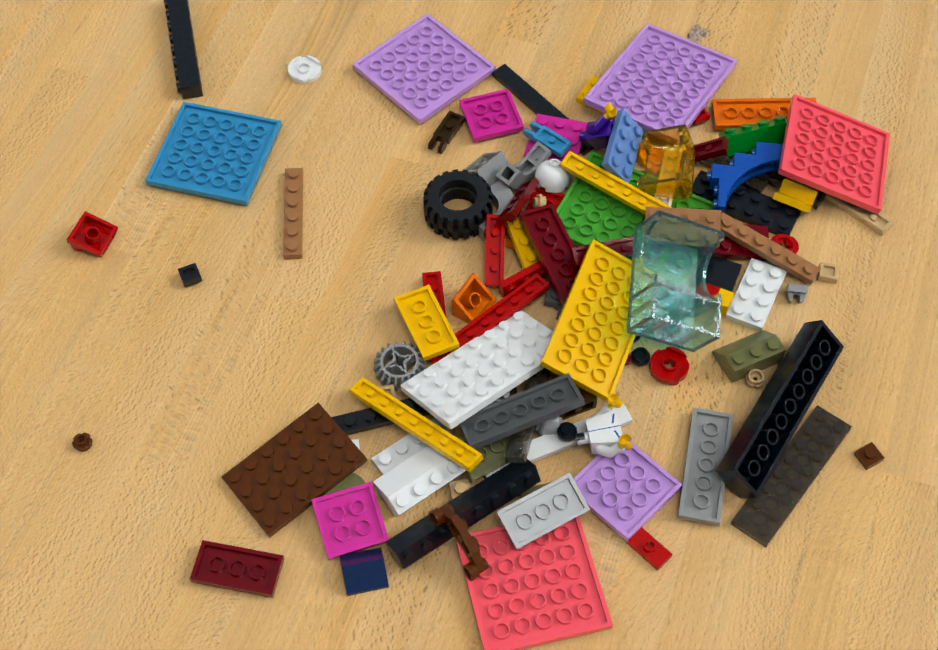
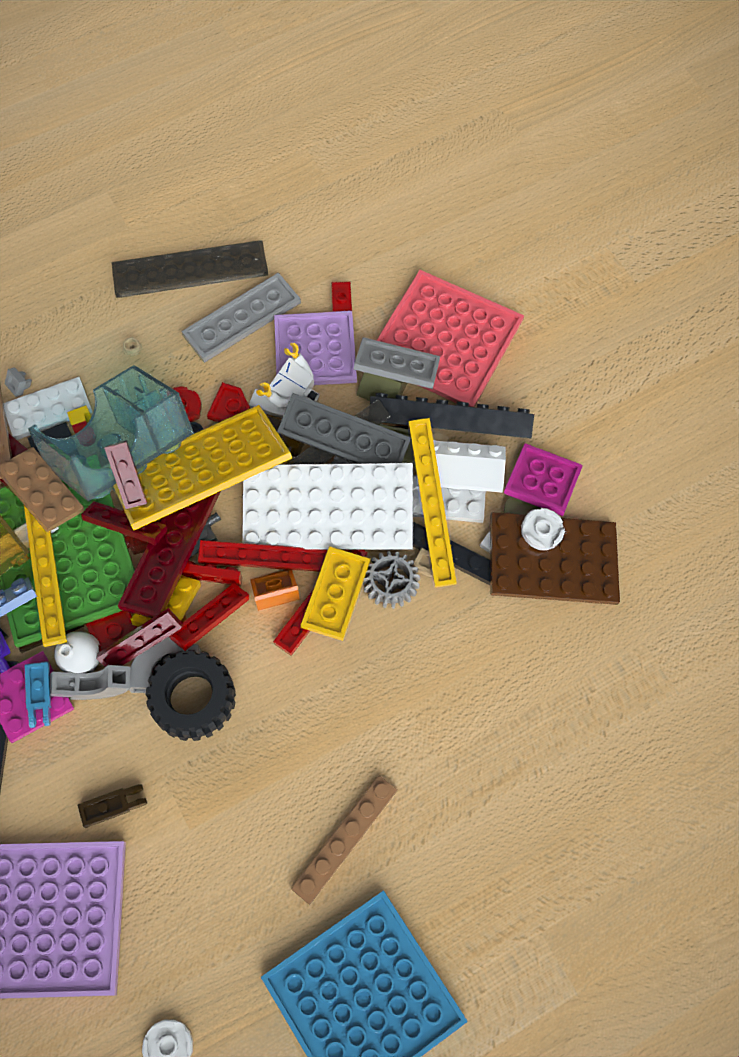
camera: 140 degrees left, 10 degrees up
(82, 446) = (718, 741): reddish brown plate -> none
(92, 234) = (574, 988): red slope -> none
(190, 274) = (504, 845): black plate -> none
(237, 568) = (659, 514): dark red plate -> none
(317, 472) = (542, 529): none -> white tile
(364, 571) = (560, 439): dark blue slope -> none
(467, 542) = (476, 372): reddish brown plate -> none
(488, 166) = (124, 720): light grey slope -> none
(491, 115) = (50, 785): dark pink plate -> none
(539, 201) = (120, 628): tan plate -> none
(627, 253) = (126, 474): none -> plate
(636, 390) = (227, 403): none -> red plate
(749, 353) = (106, 359): olive slope -> none
(780, 410) = (144, 302): black brick -> none
(869, 456) = (124, 239): reddish brown plate -> none

